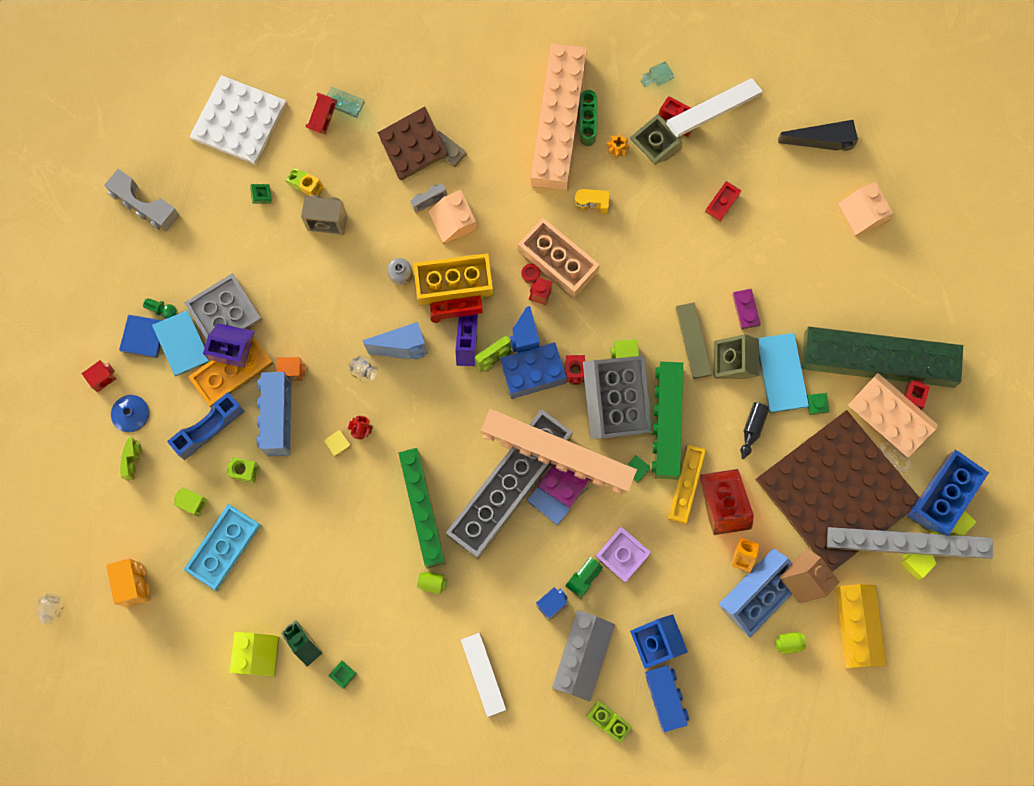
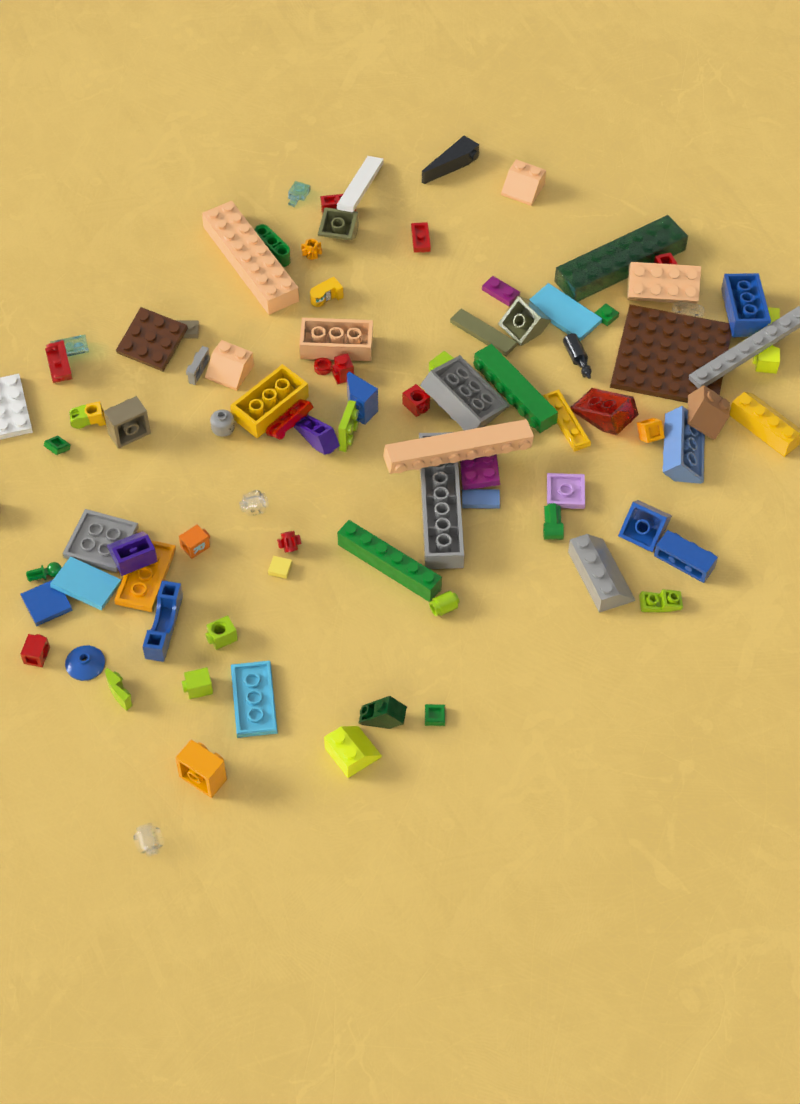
camera: 45 degrees left, 20 degrees down
(274, 414) = (214, 574): medium blue brick -> none
(399, 343) = (268, 465): medium blue slope -> none
(483, 674) = (541, 637): white tile -> none
(533, 370) = (386, 420): blue brick -> none
(552, 603) = (547, 550): blue brick -> none
(790, 643) = (734, 463): lime brick -> none

